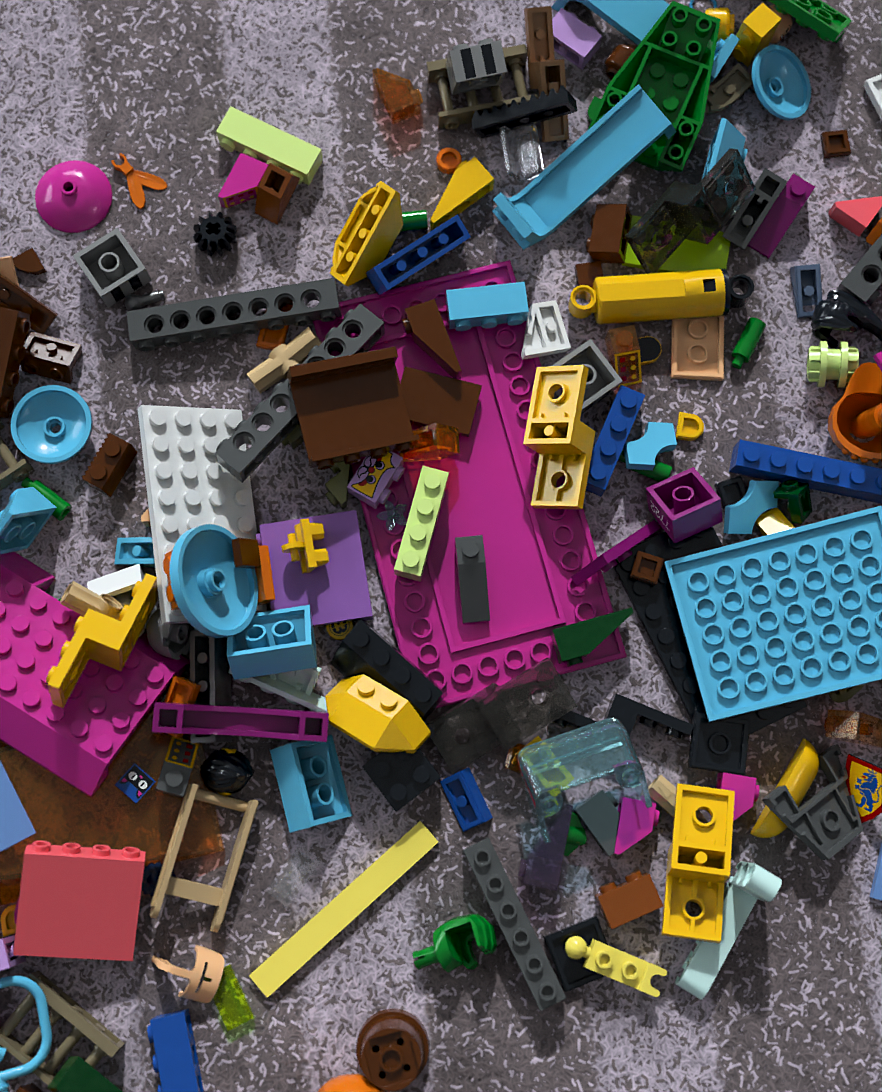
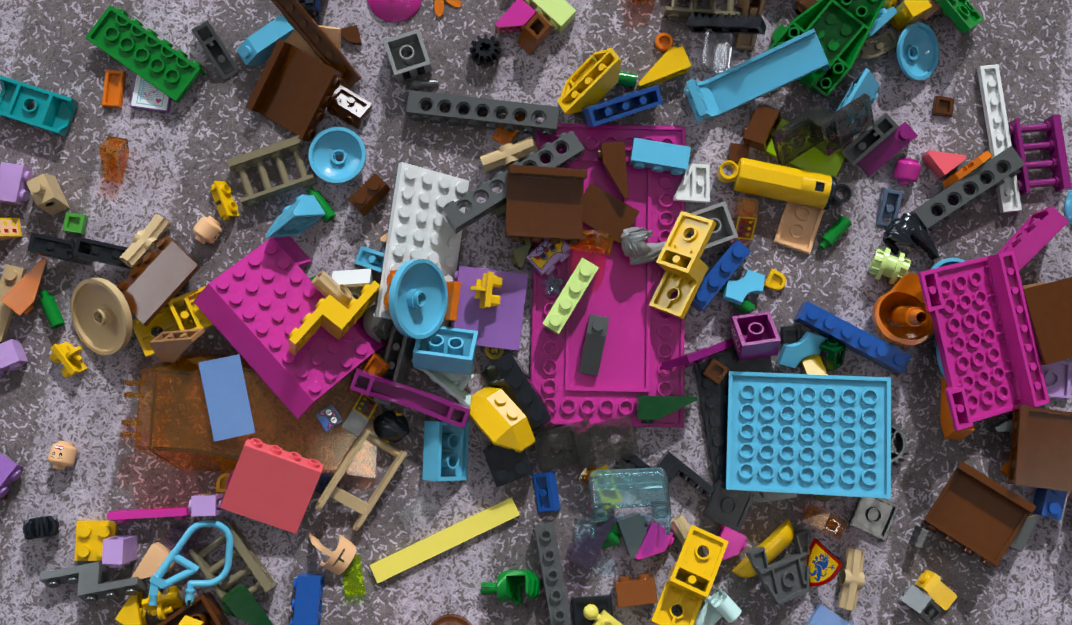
camera: 15 degrees right, 5 degrees up
(246, 553) = (445, 284): reddish brown tile -> none
(490, 433) = (636, 249): none -> light grey hair
(649, 349) = (764, 218): black tile -> none
(815, 237) = (906, 171): none -> dark pink head

